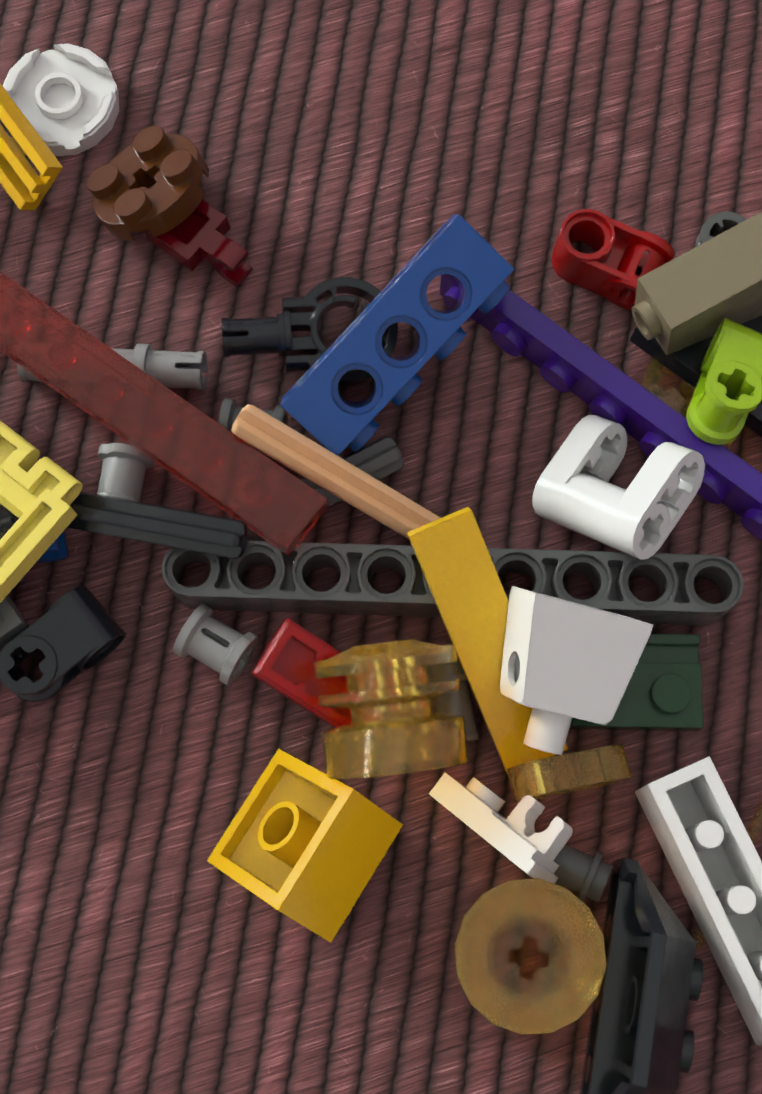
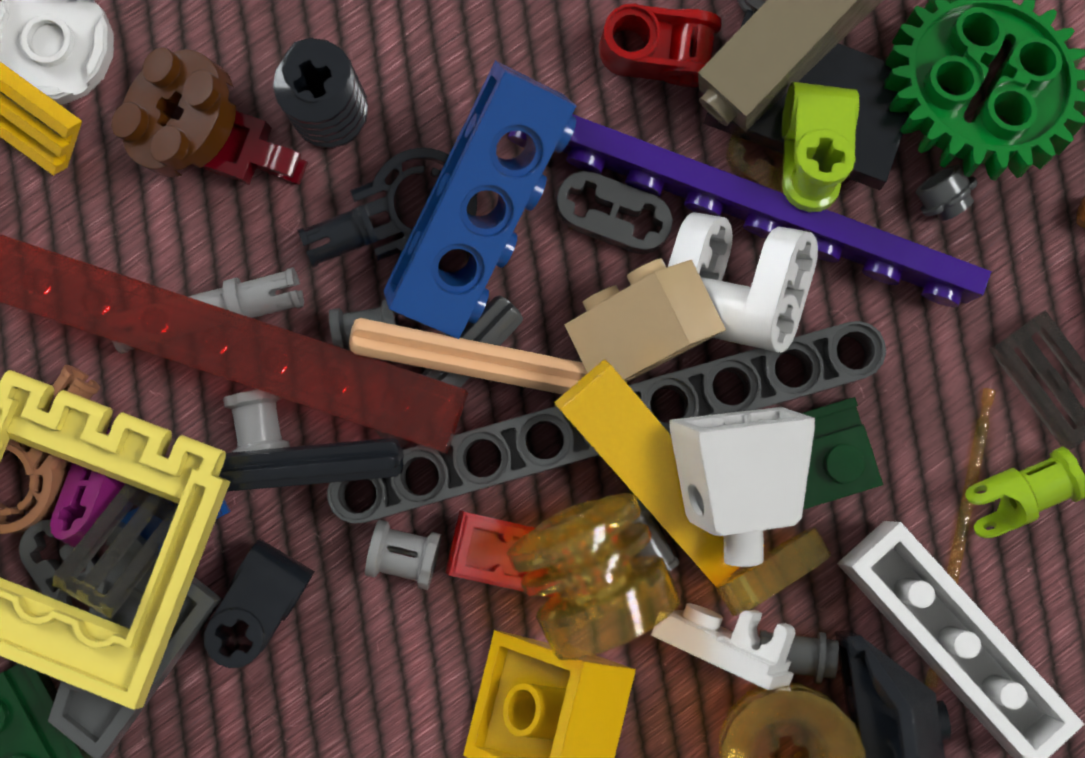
camera: 15 degrees left, 10 degrees up
(285, 202) = (321, 93): none -> black piece
(521, 491) = (647, 322): none -> tan brick
(529, 386) = (620, 199): none -> dark grey beam

